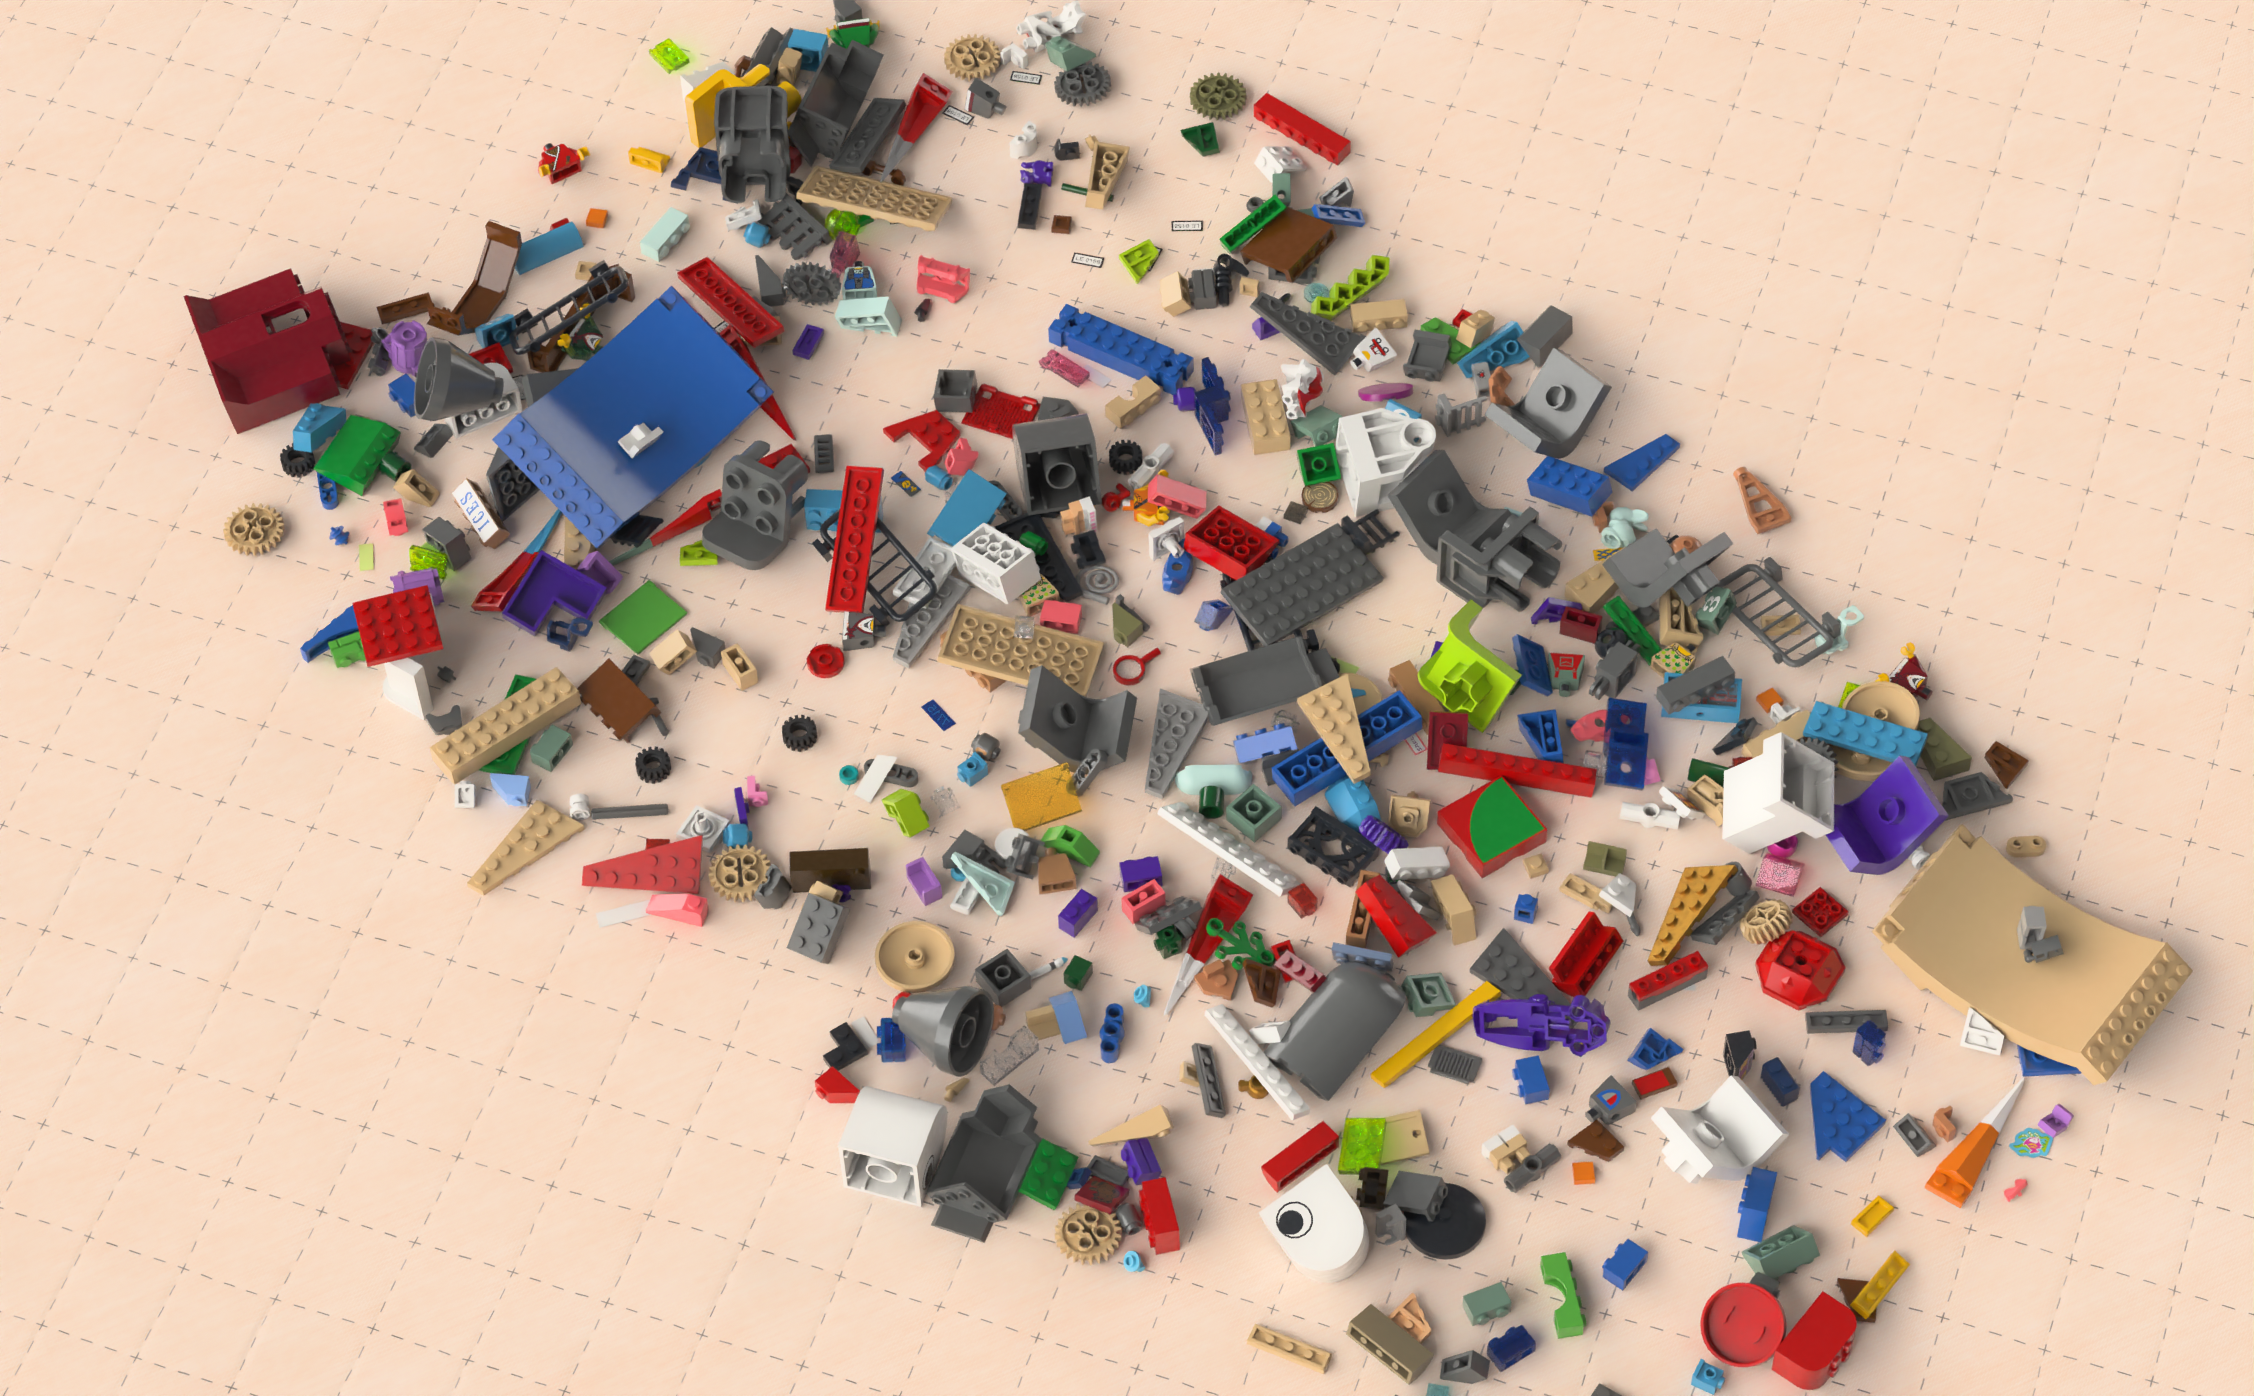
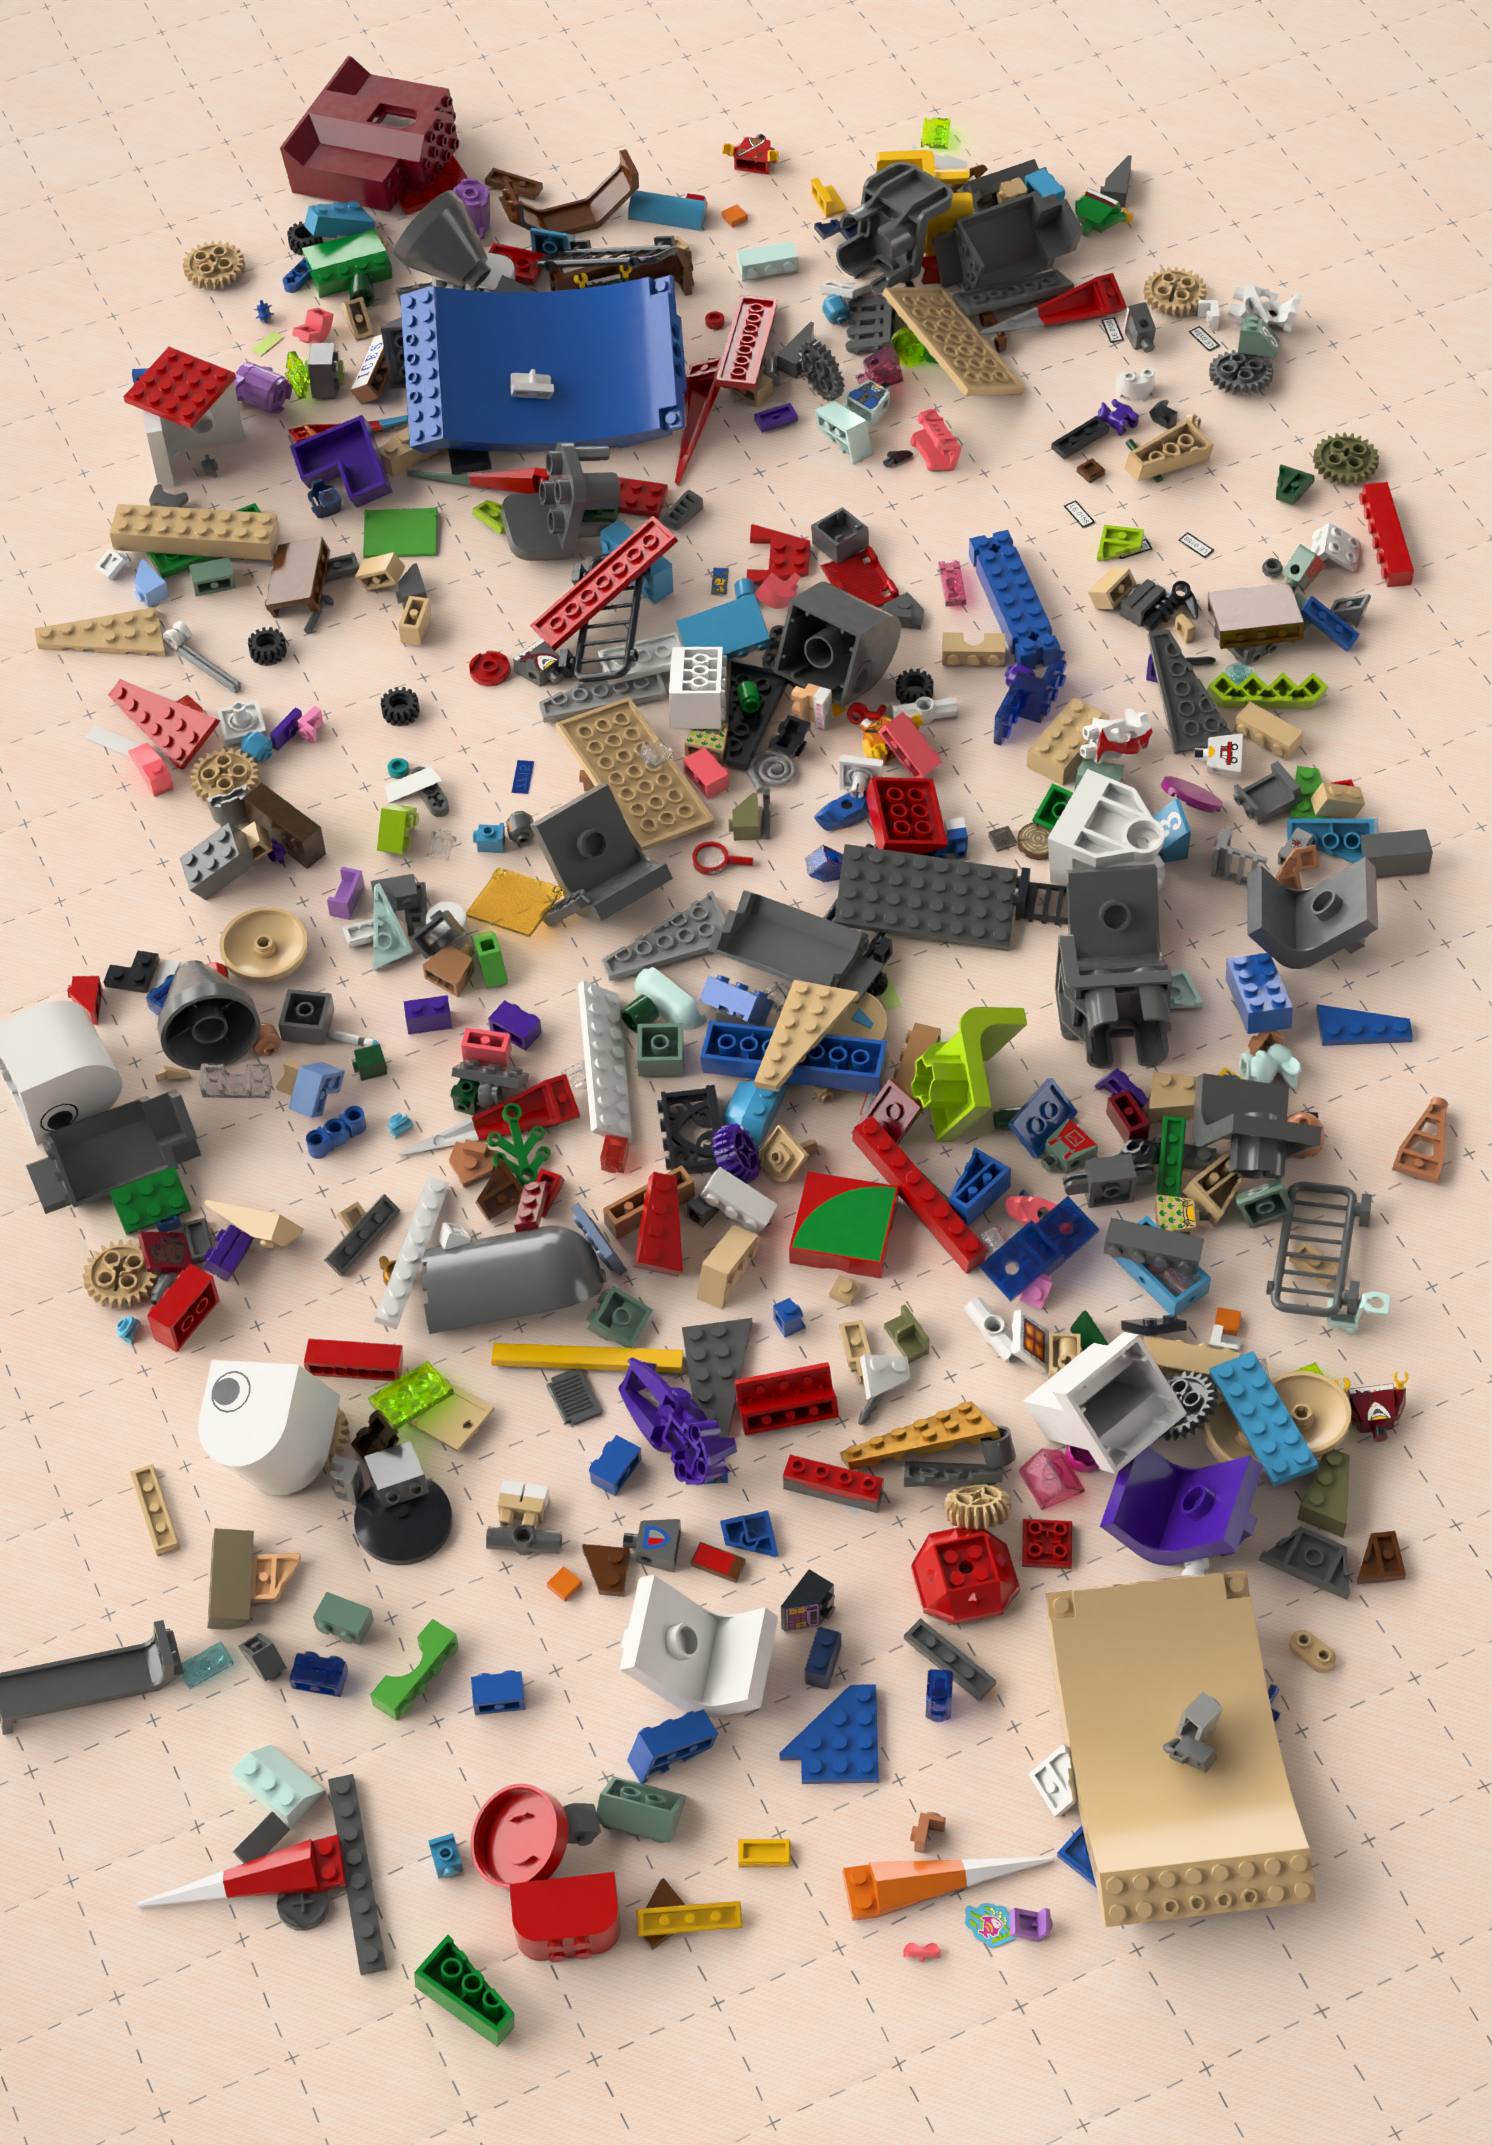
camera: 45 degrees right, 0 degrees up
(600, 570) = (401, 472): medium lavender panel -> none
(1097, 377) = (972, 608): white sticker -> none
(1252, 224) = (1242, 576): green brick -> none
(1418, 900) = (701, 1230): light grey slope -> none
(1914, 1135) = (891, 1817): dark grey slope -> none

